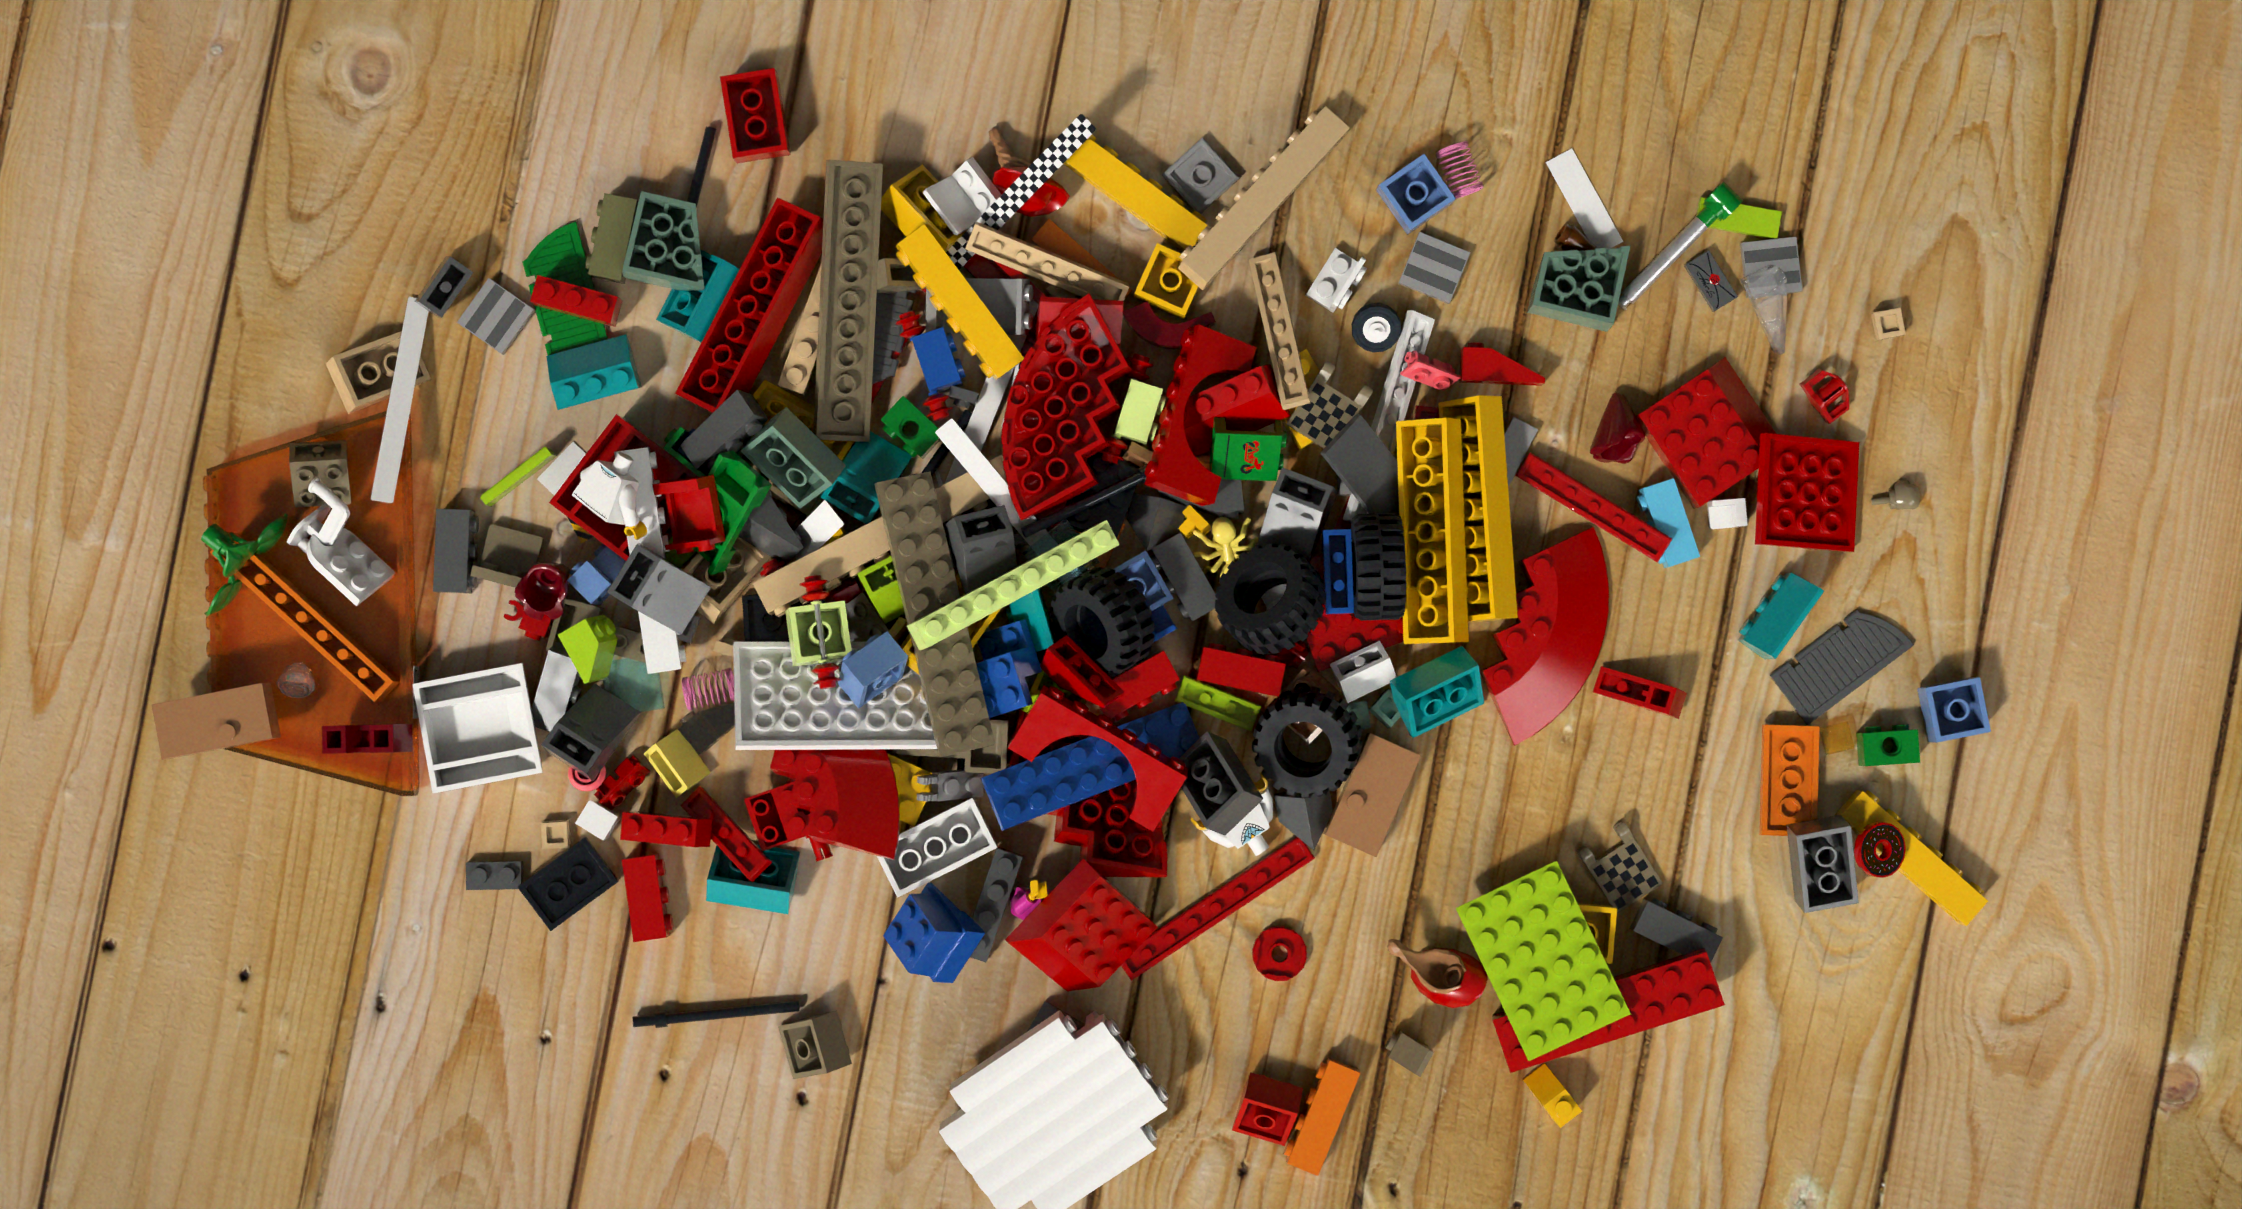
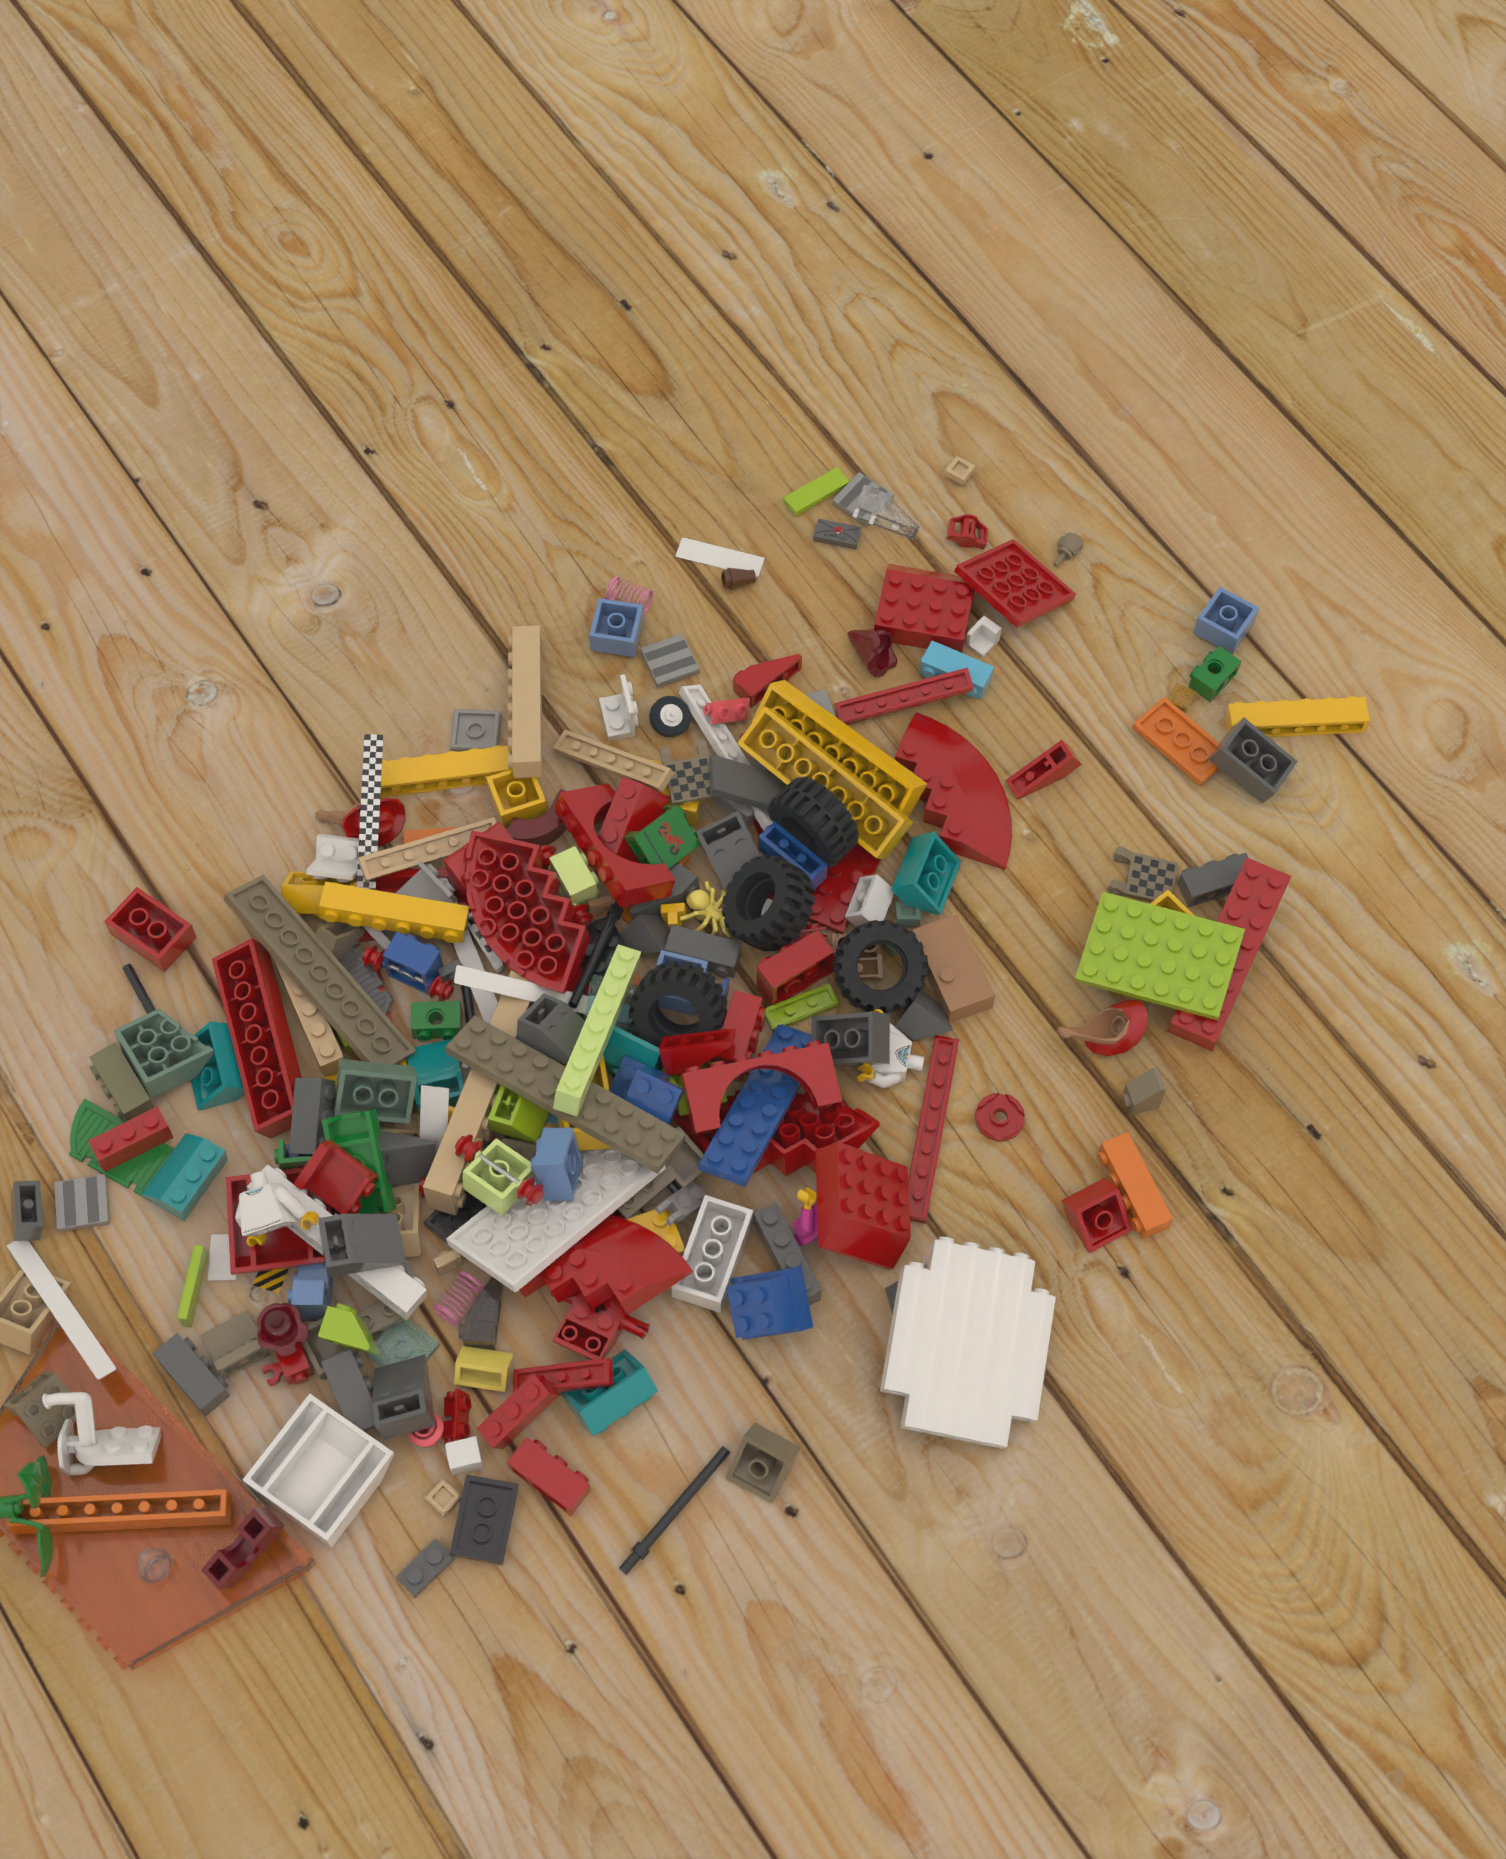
camera: 40 degrees left, 25 degrees down
(216, 721) = (116, 1639): medium nougat brick -> none
(1552, 1095) = (1256, 1038): yellow slope -> none
(1580, 286) = (766, 594): sand green wedge -> none
(1718, 206) = (798, 490): flat silver piece -> none
(1779, 615) = (1074, 658): teal slope -> none
(1839, 663) = (1136, 660): dark grey piece -> none
(1892, 853) = (1285, 720): tile -> none

